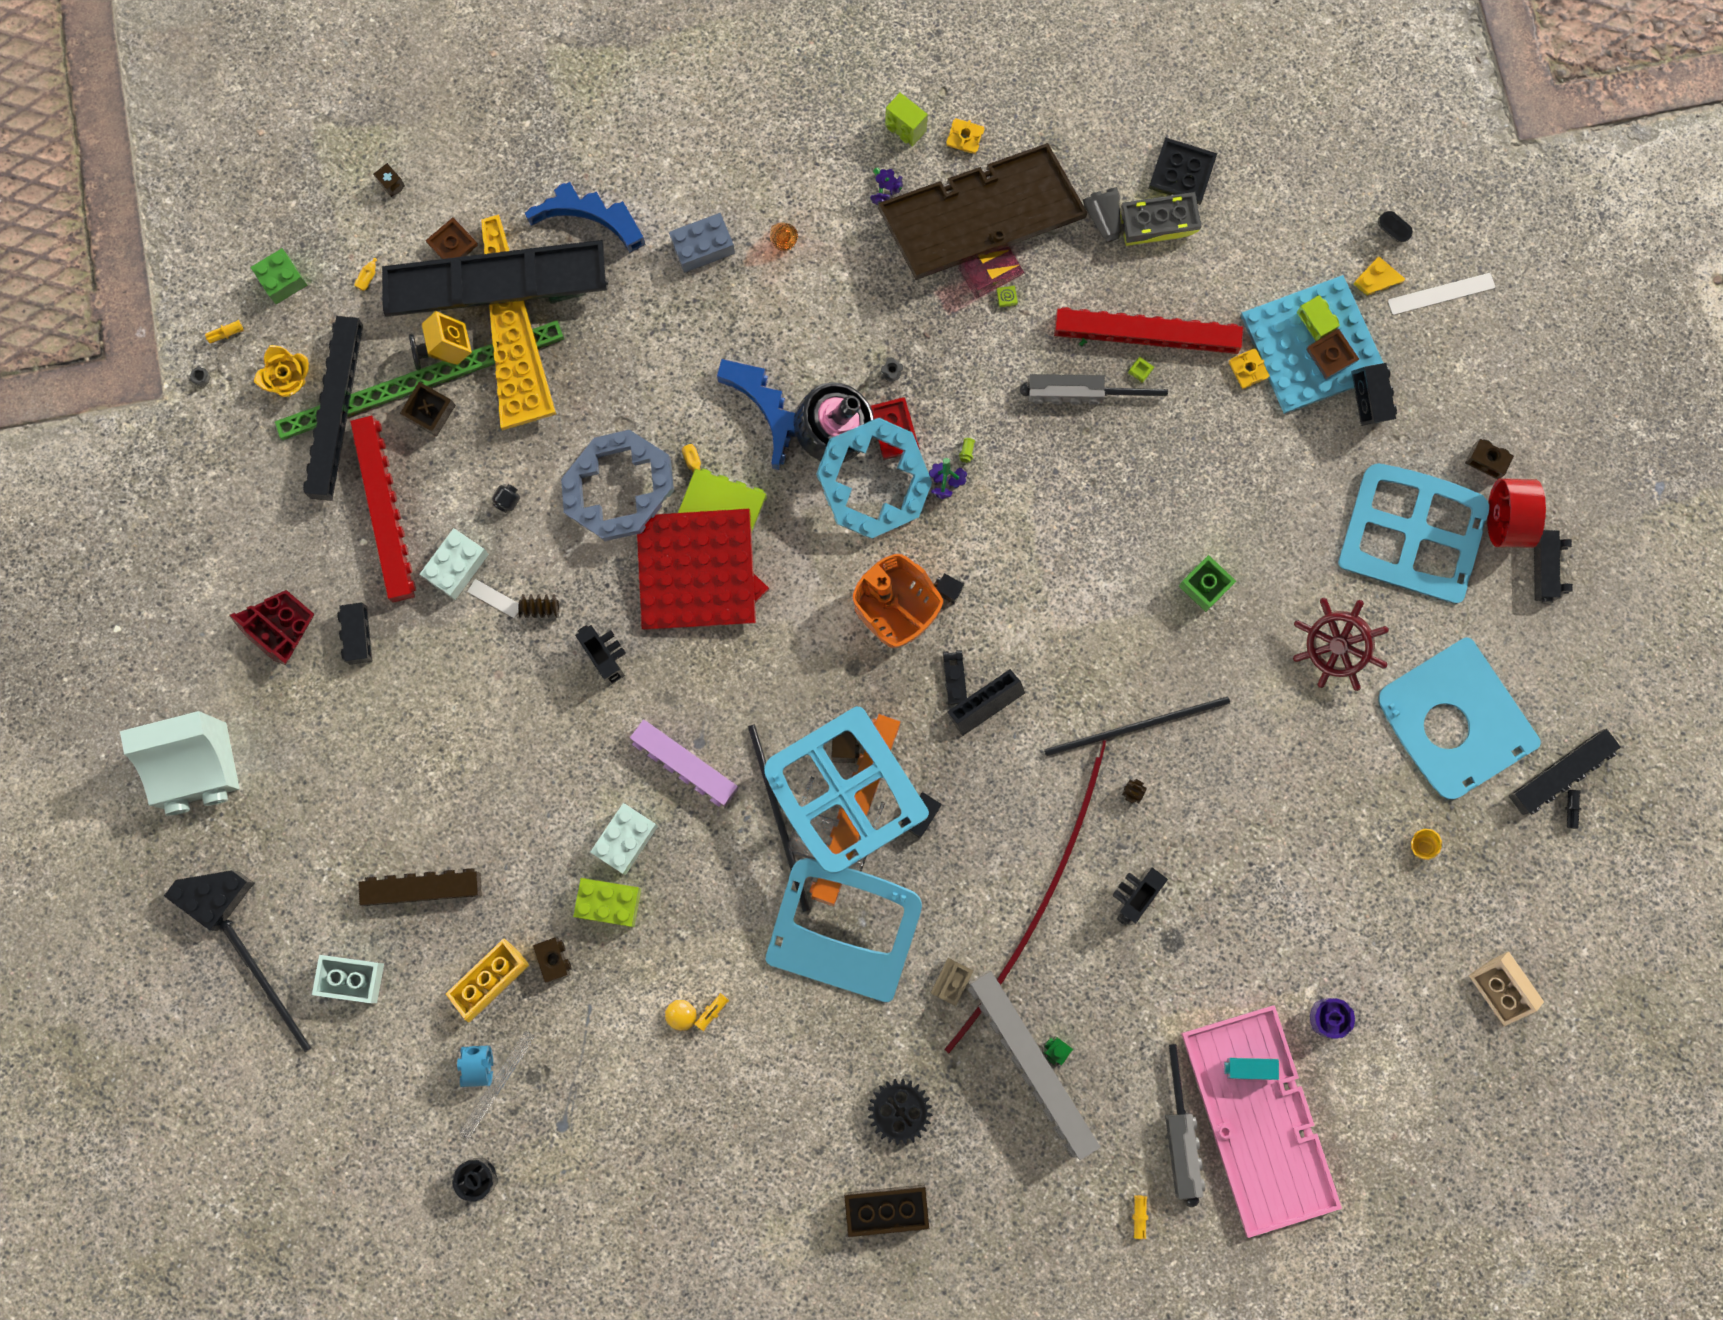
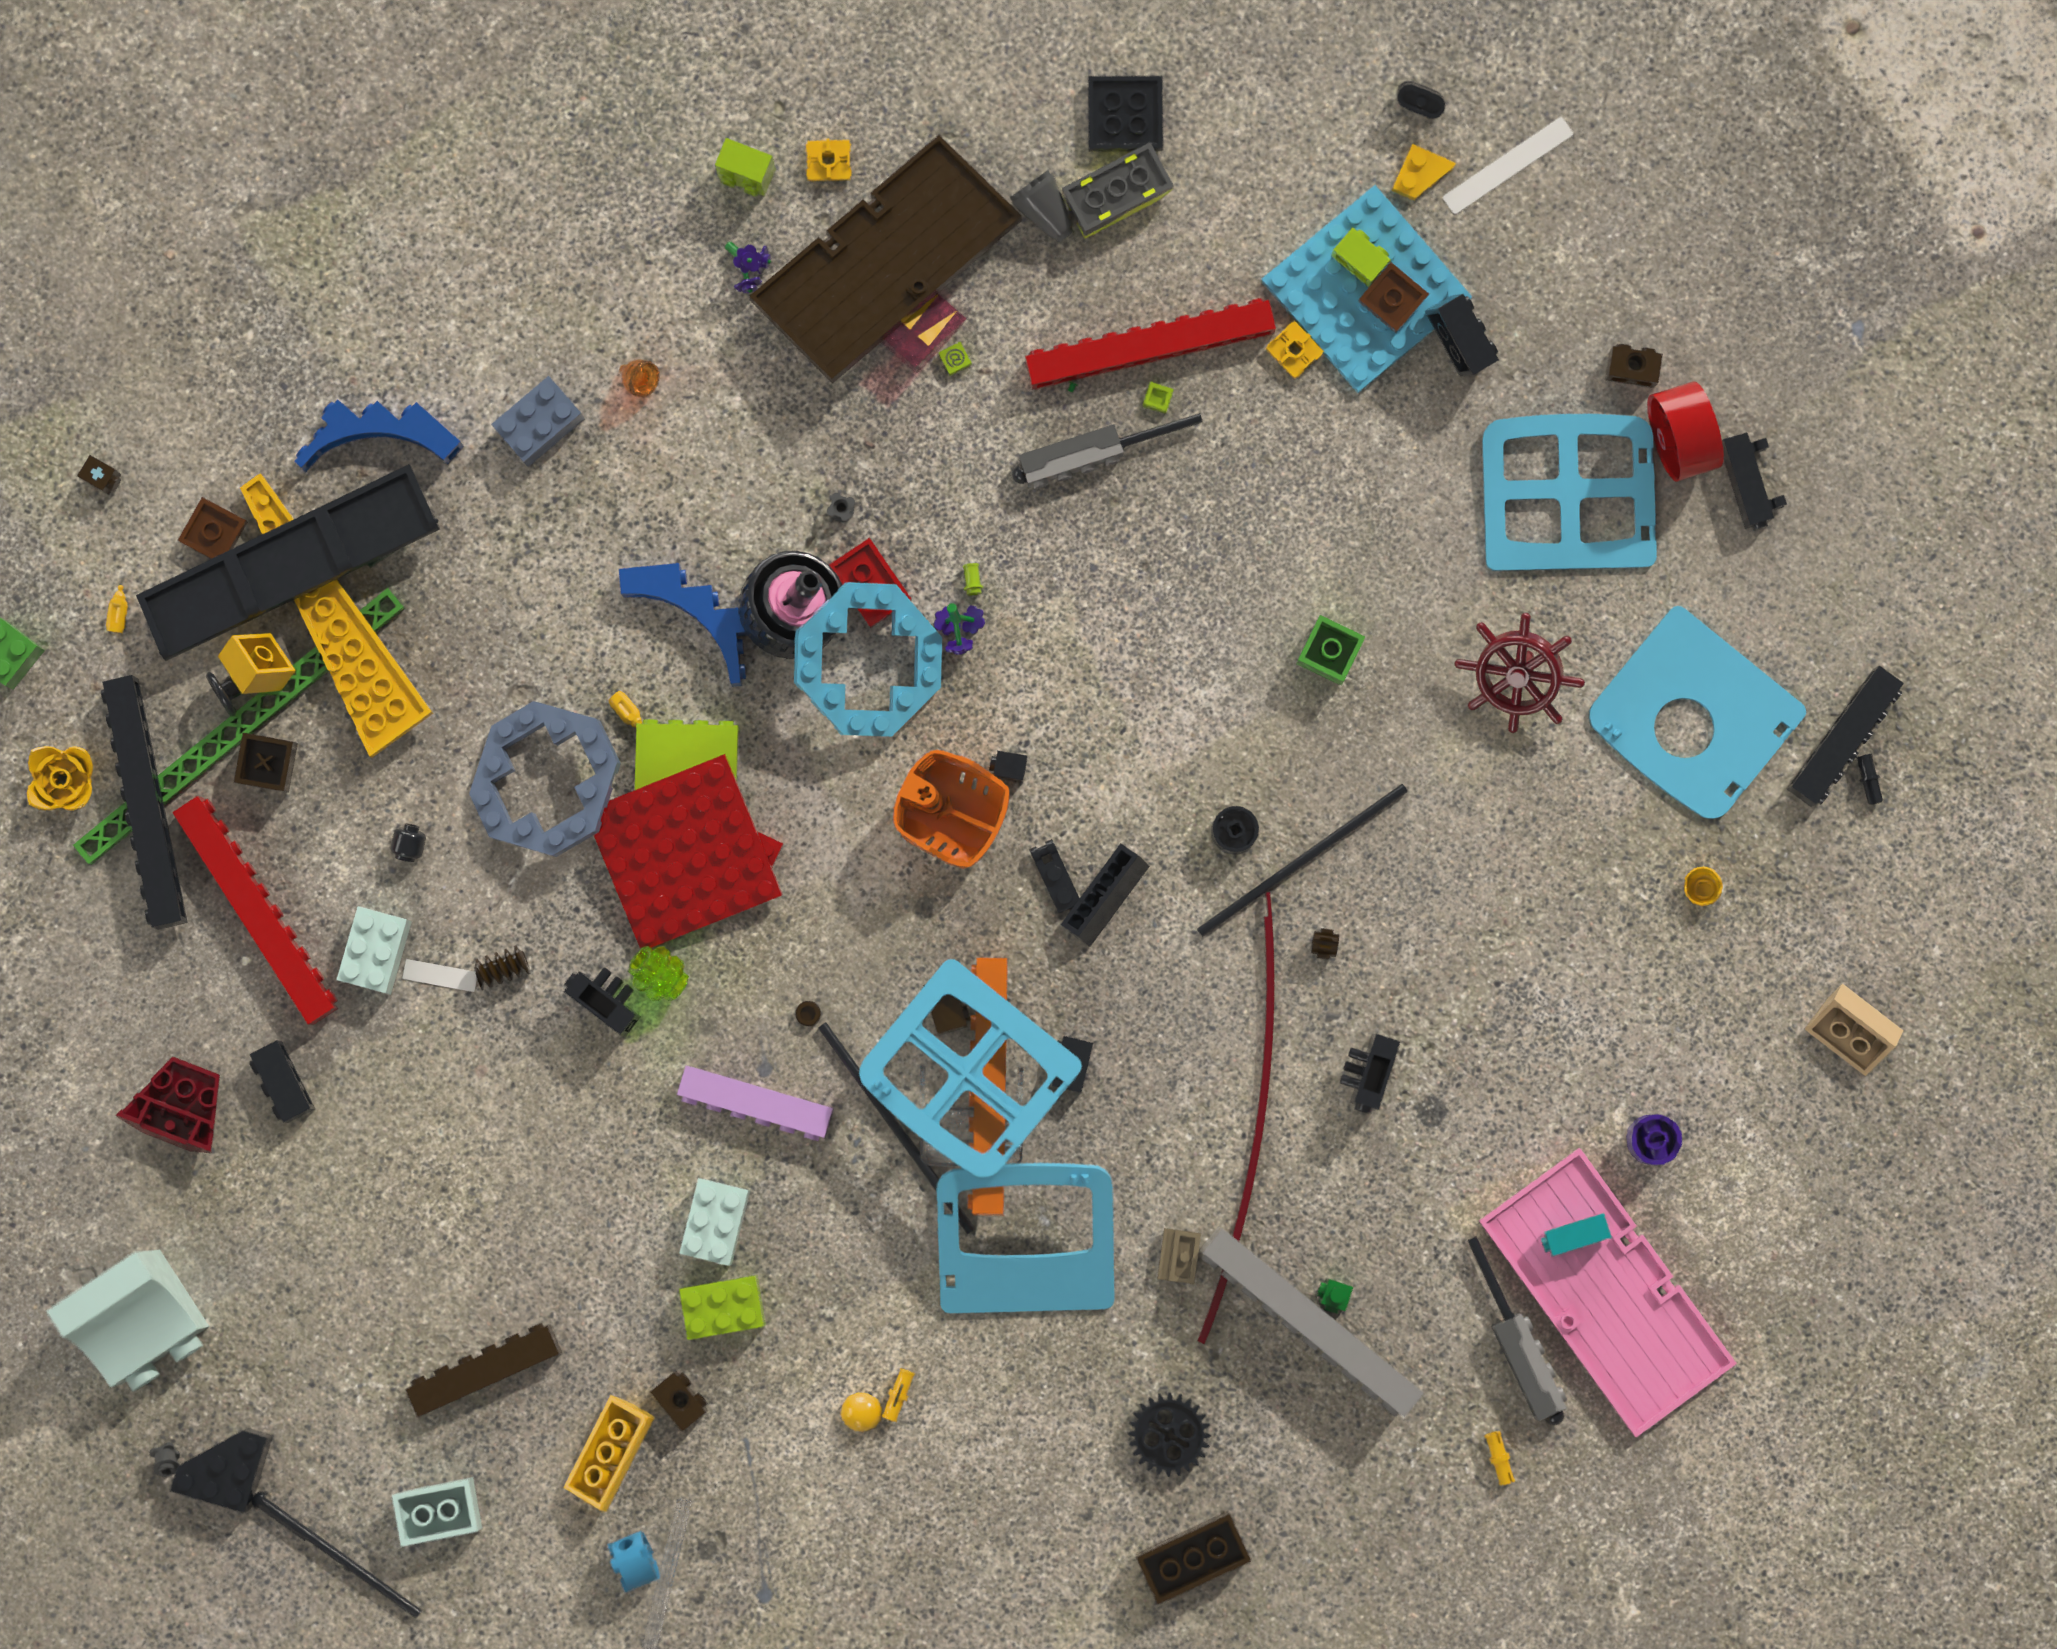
camera: 20 degrees left, 5 degrees up
(170, 872) = (165, 1460): none -> dark grey brick
(647, 648) = (658, 973): none -> clear neon green piece
(744, 714) = (808, 1013): none -> dark brown tile
(1105, 687) = (1246, 824): none -> black wheel

